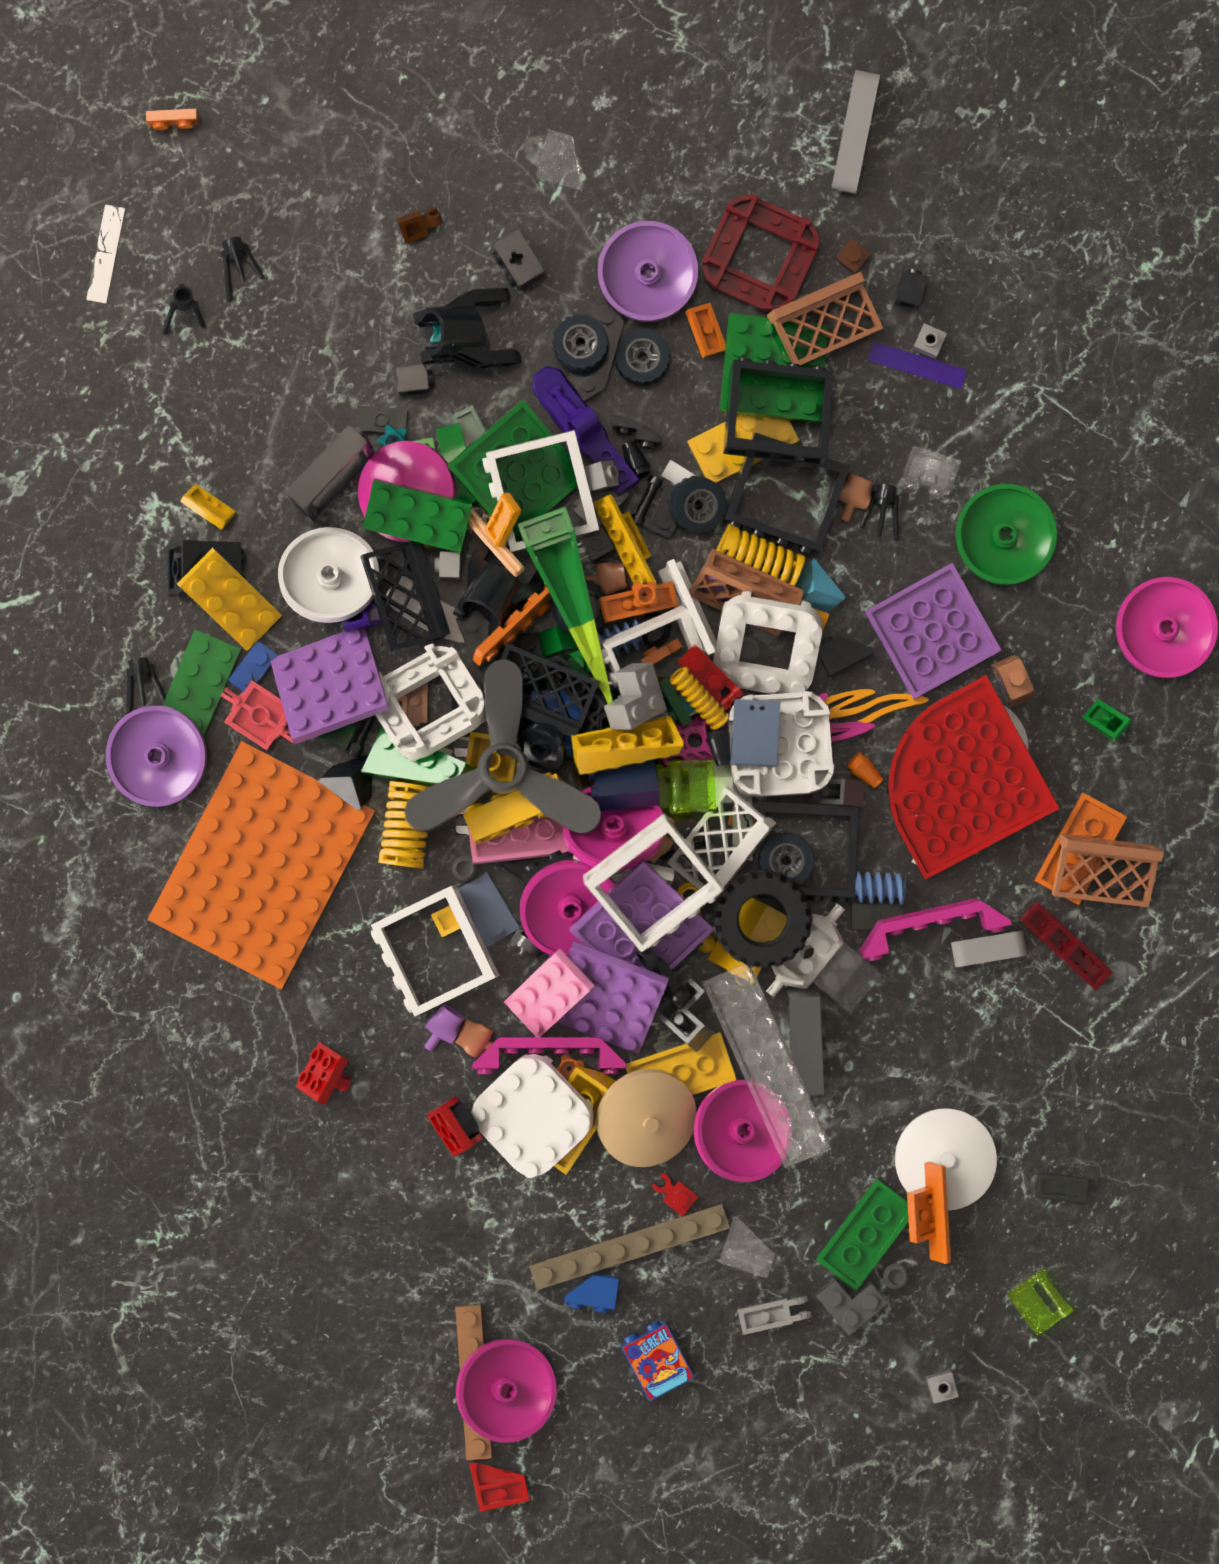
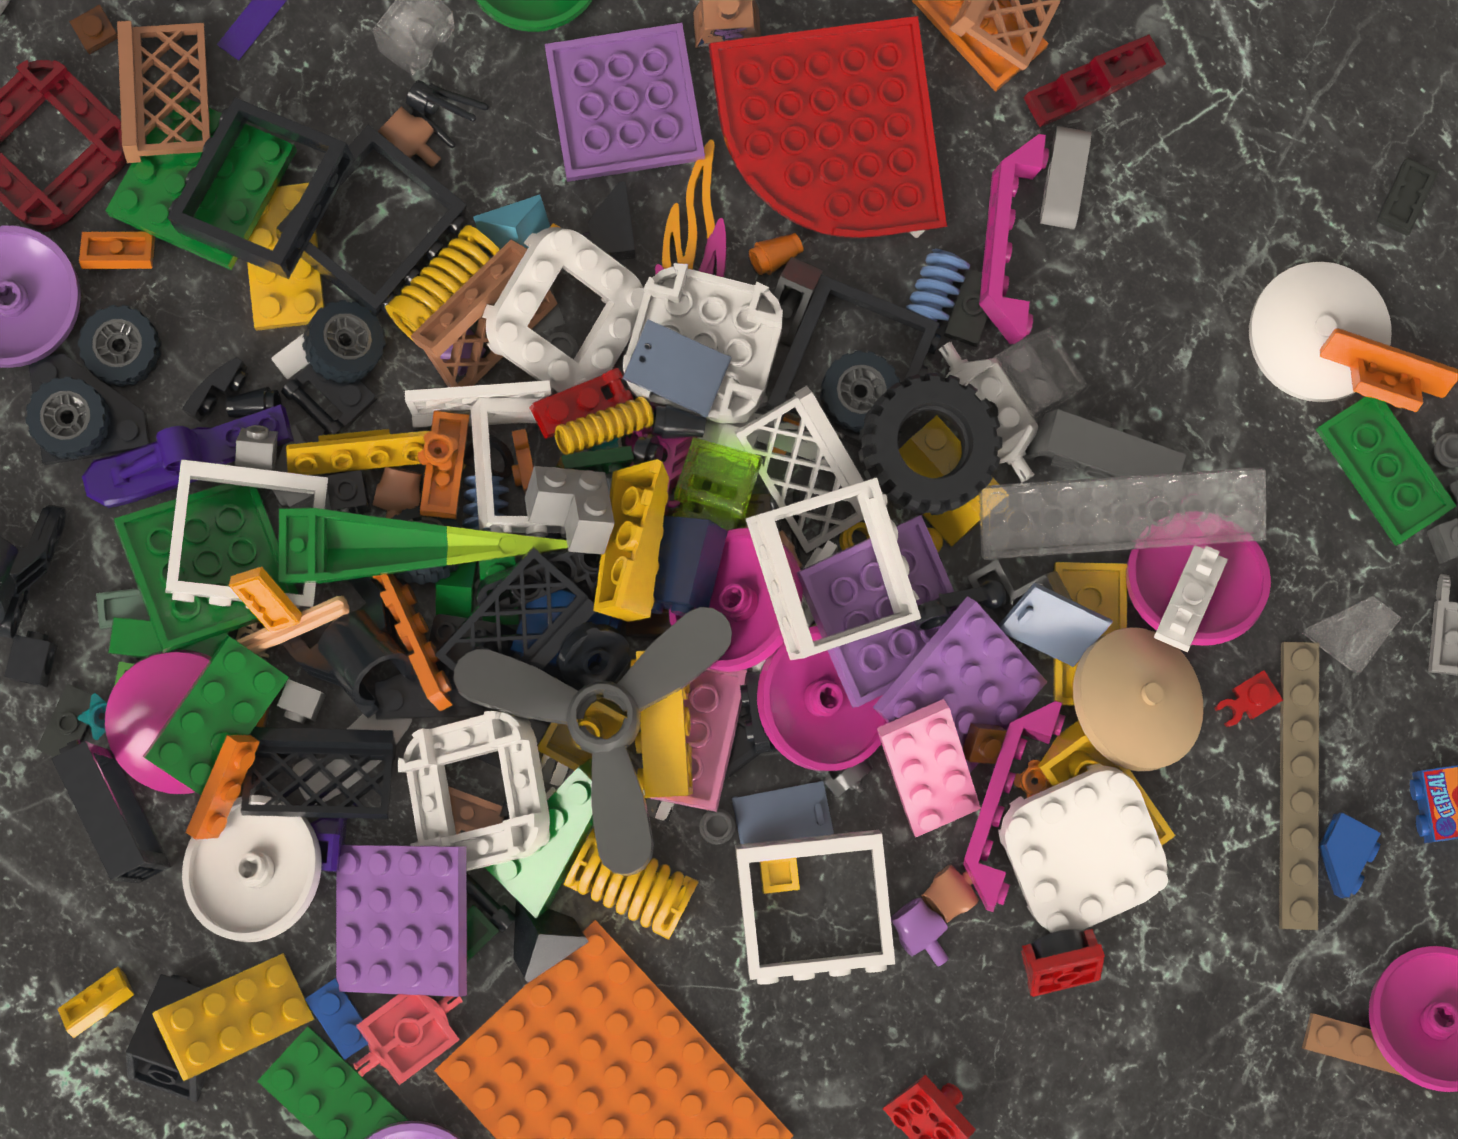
camera: 80 degrees left, 5 degrees down
(373, 537) = (222, 787): none -> orange plate
(579, 1024) = (983, 743): none -> reddish brown plate
(674, 1043) = (1054, 624): none -> container
(692, 733) = (647, 449): none -> black plate
(725, 1129) = (1191, 597): none -> white plate

